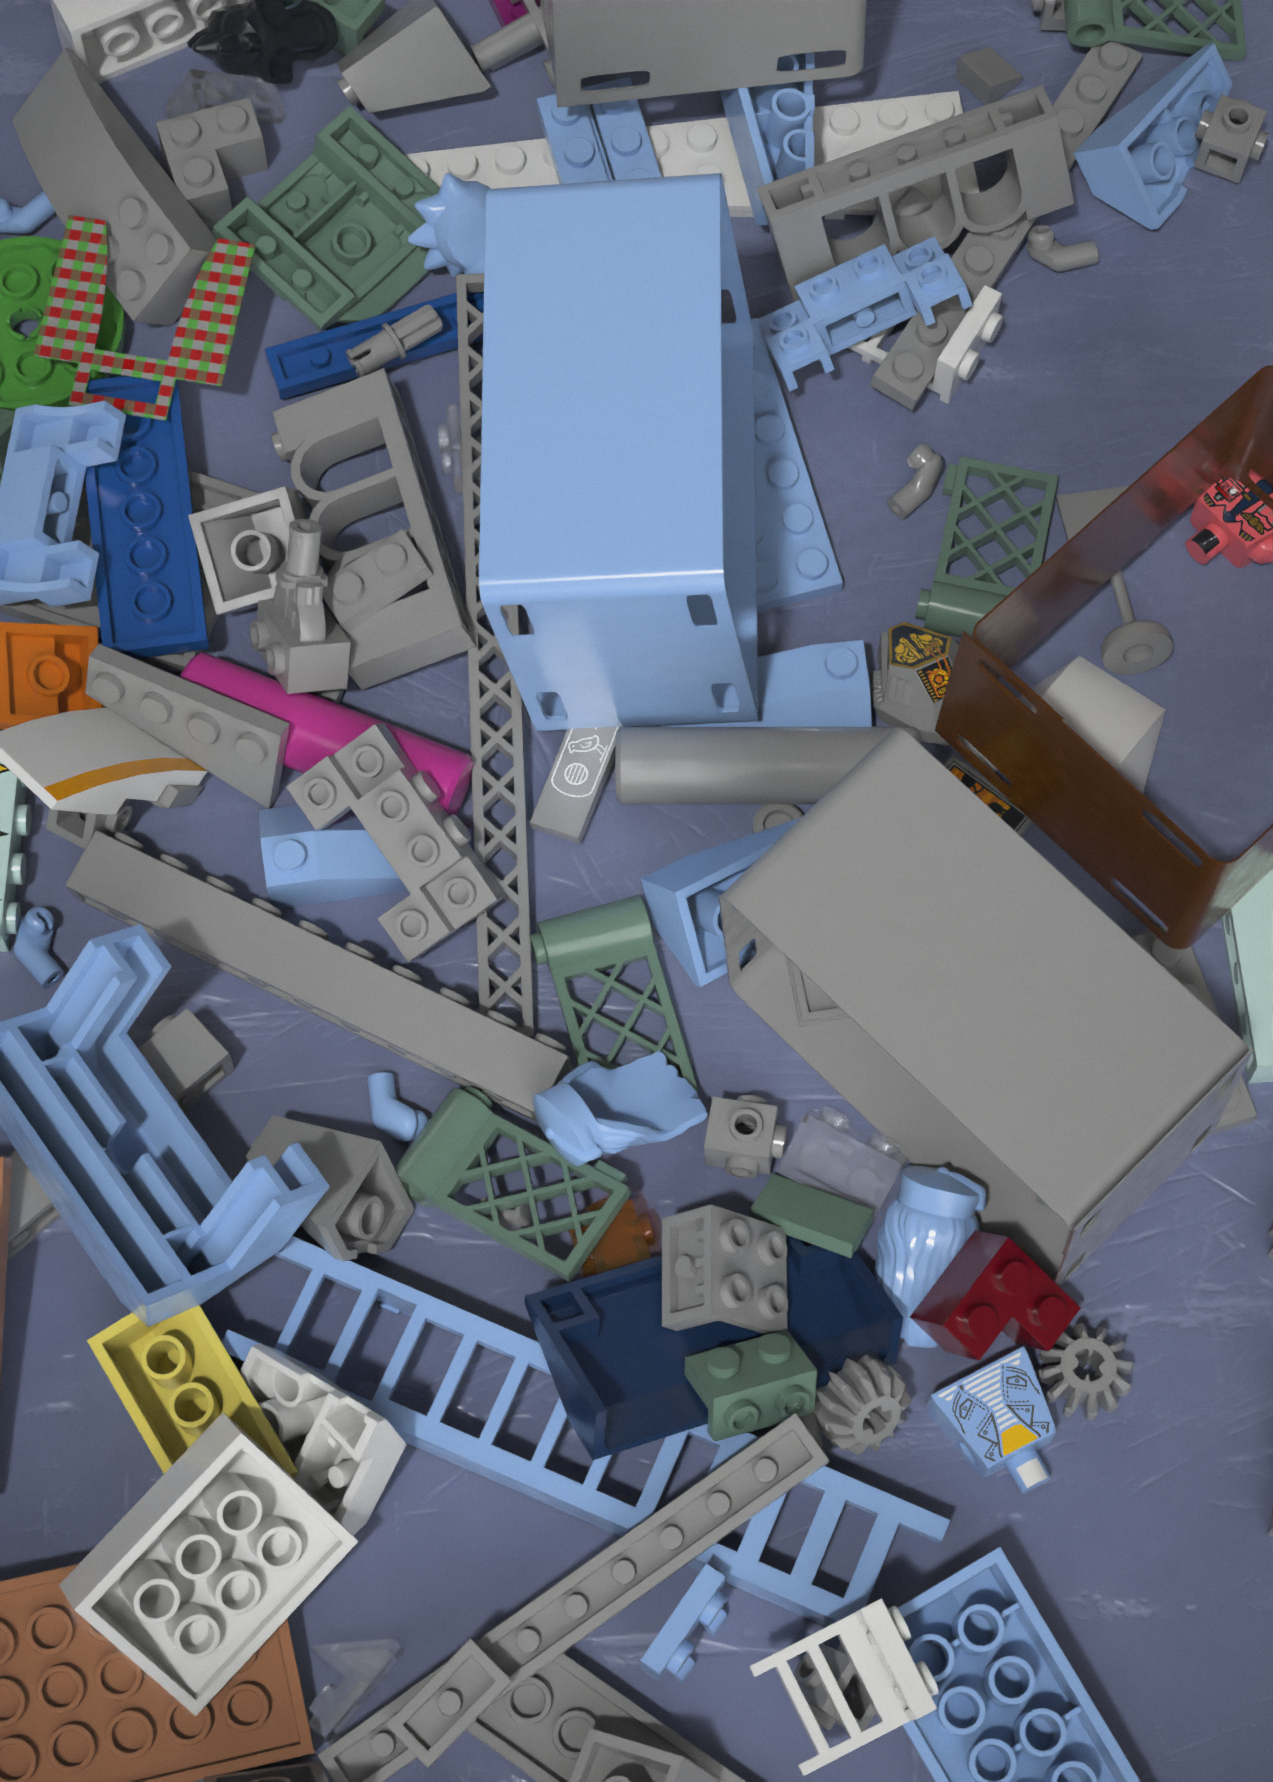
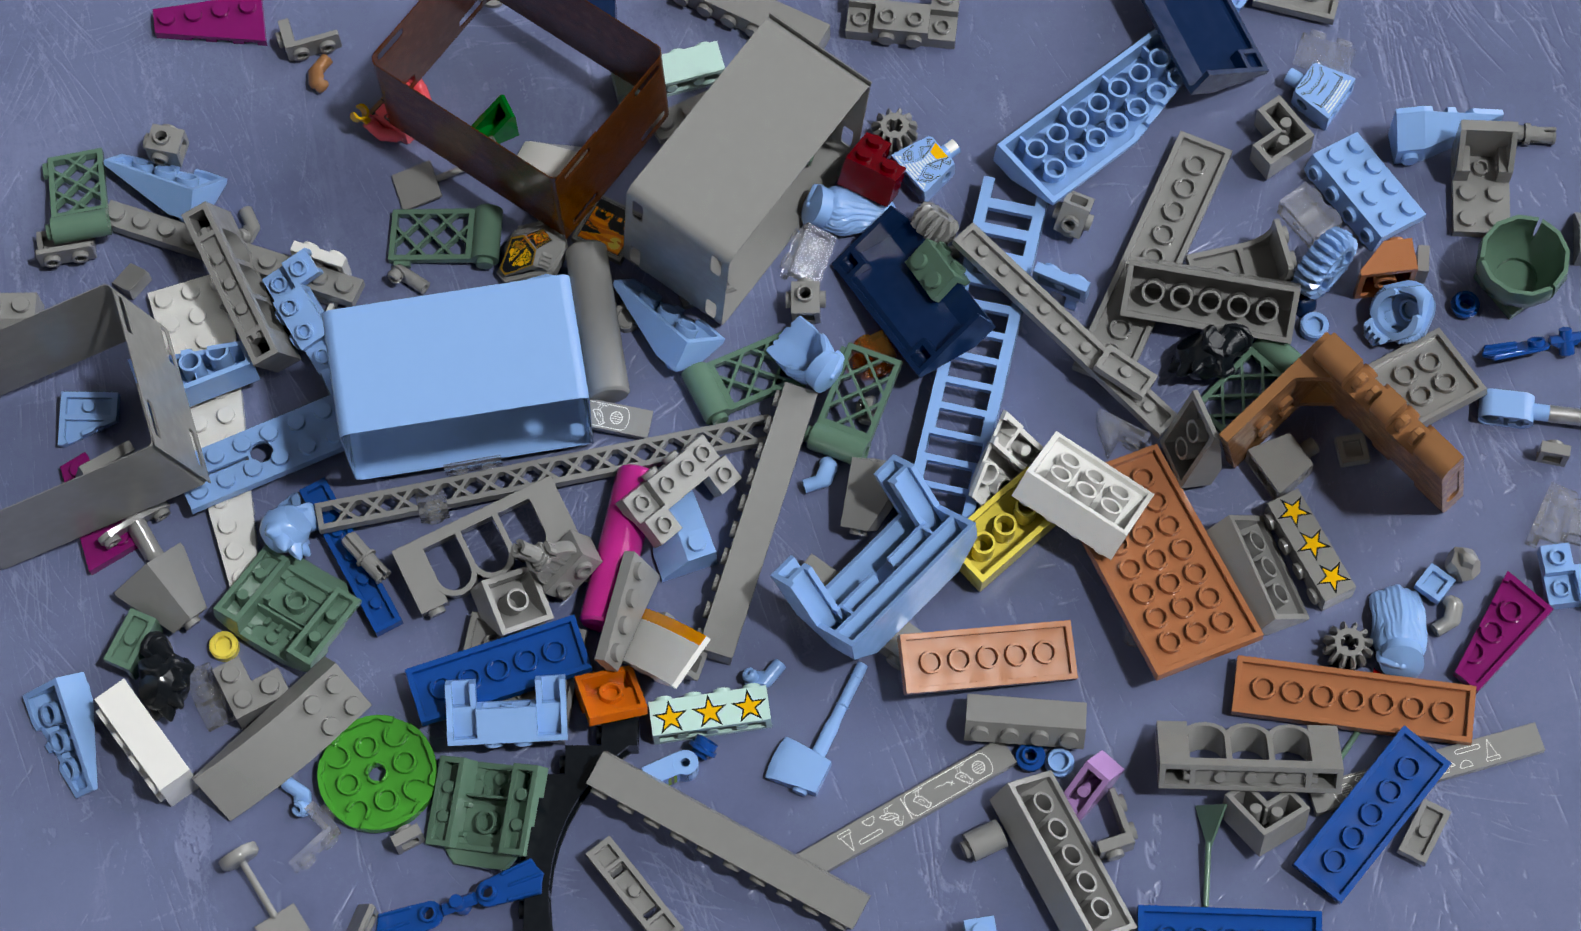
camera: 95 degrees left, 0 degrees up
(201, 339) = (378, 729): piece -> none
(299, 137) = (224, 646): none -> light yellow tile
(375, 580) = (525, 523): light grey plate -> none
(723, 1271) = (884, 293): light grey bracket -> none
(813, 1215) = (840, 263): sand green tile -> none
(885, 1668) = (1066, 181): white plate -> none
(1203, 663) = (498, 121): none -> green slope

